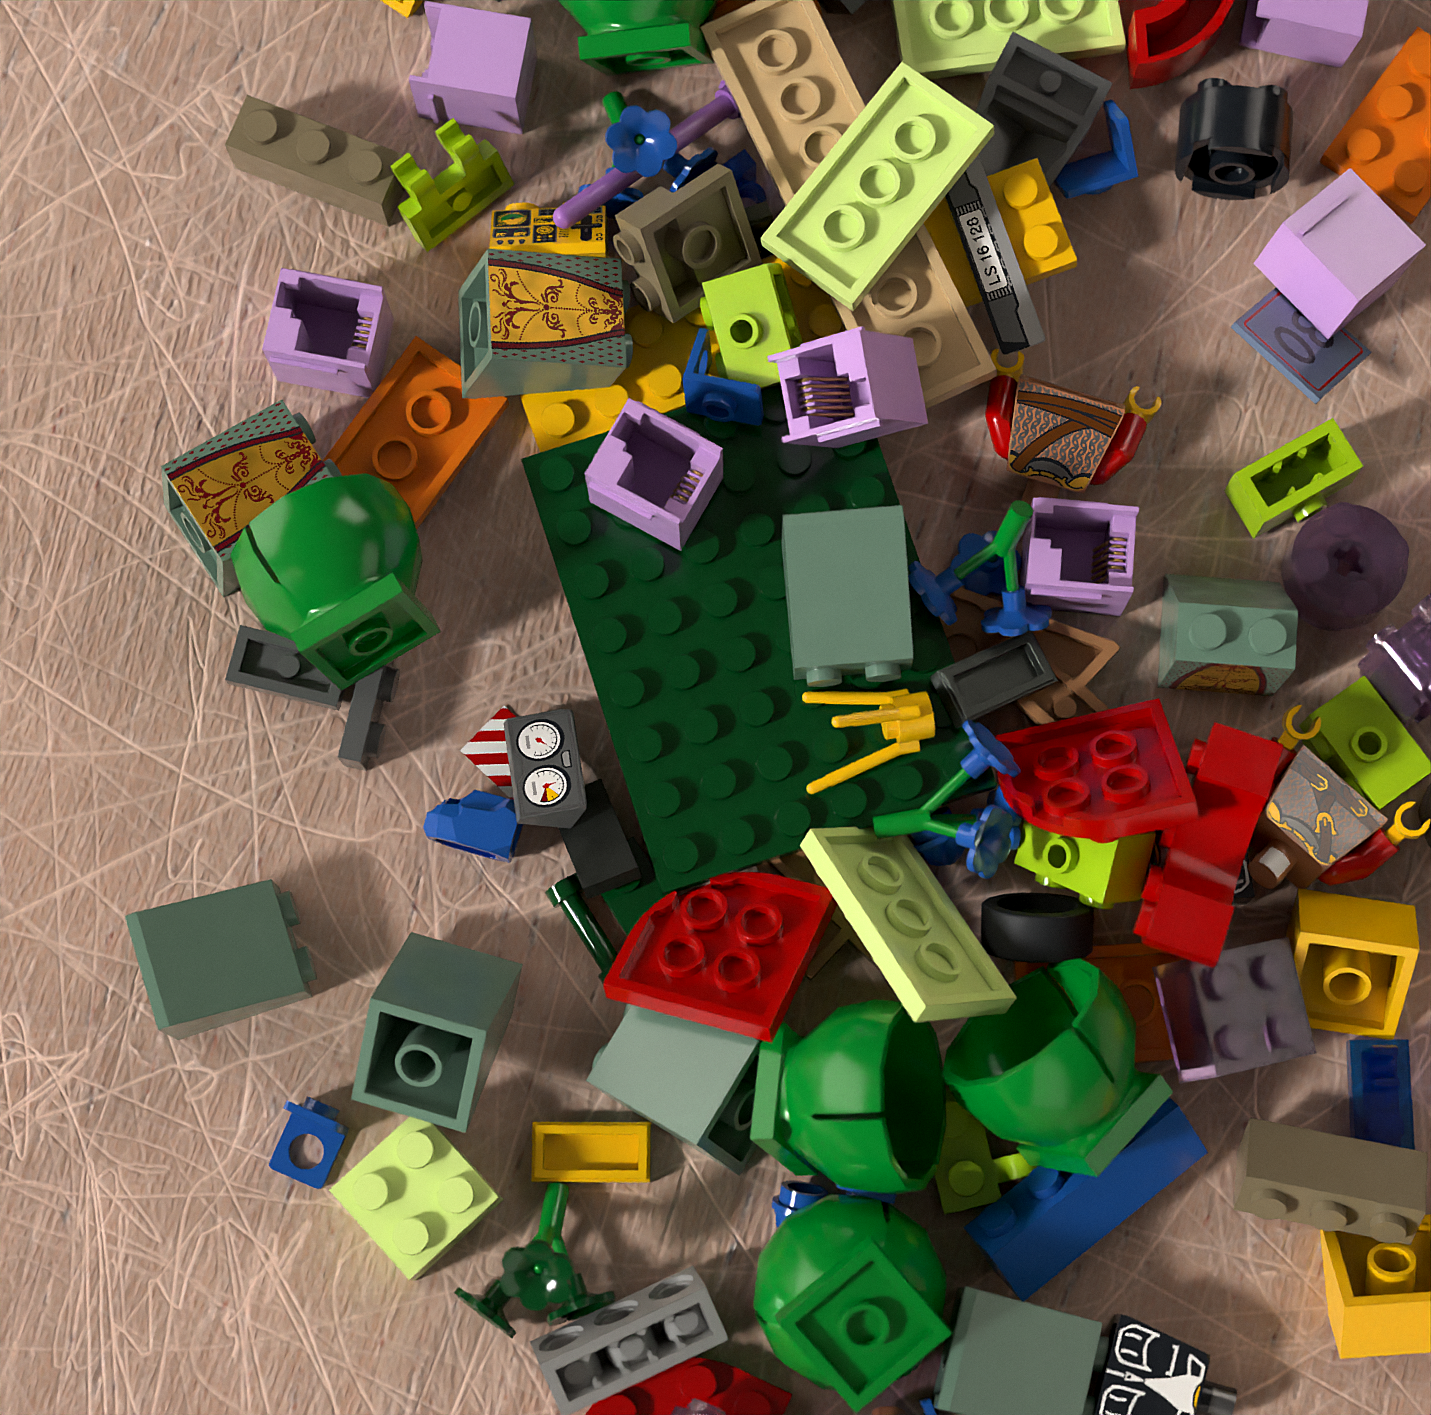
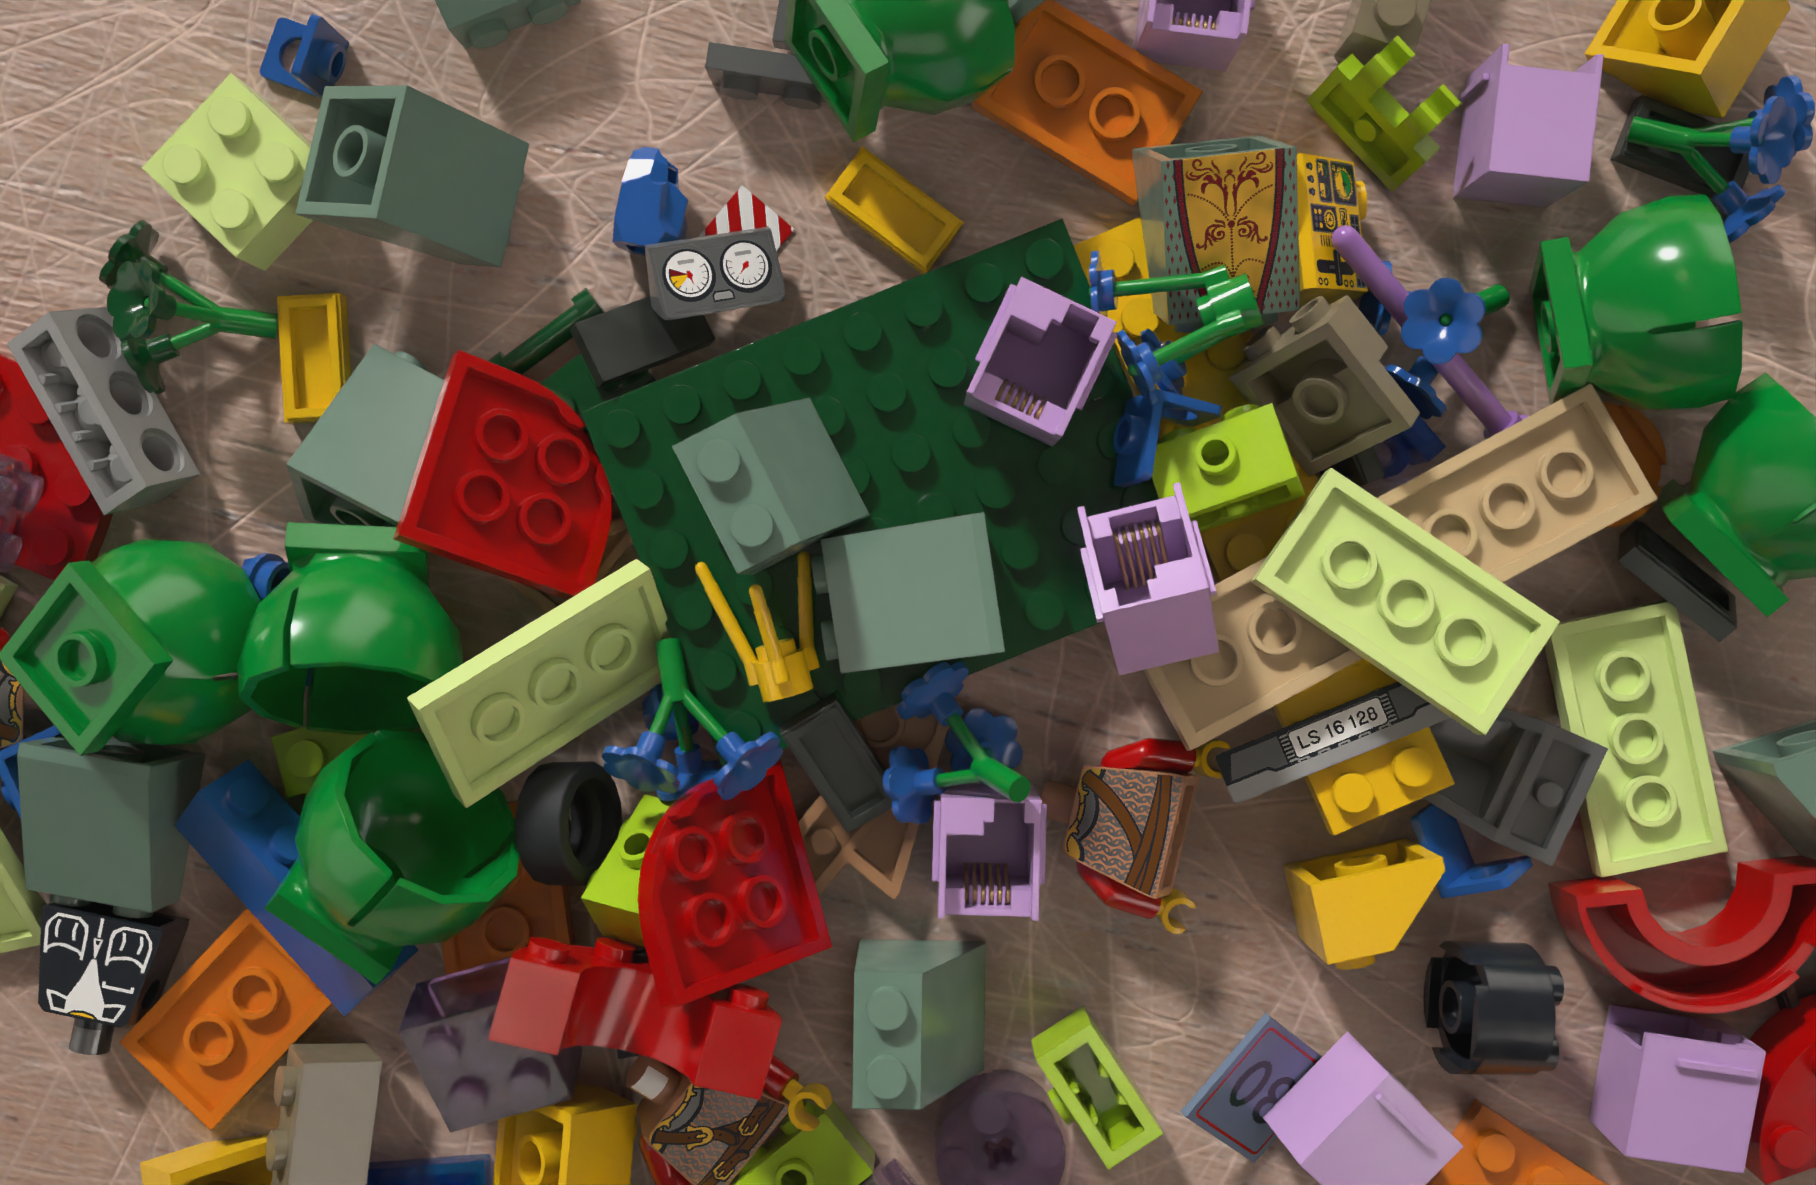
camera: 80 degrees right, 10 degrees up
(497, 613) = (894, 211): none -> yellow tile
(621, 316) = (1225, 312): none -> green plant
(747, 711) = (770, 483): none -> sand green slope
(1134, 243) = (1361, 899): none -> yellow slope
(1206, 1268) = (227, 1020): none -> orange plate

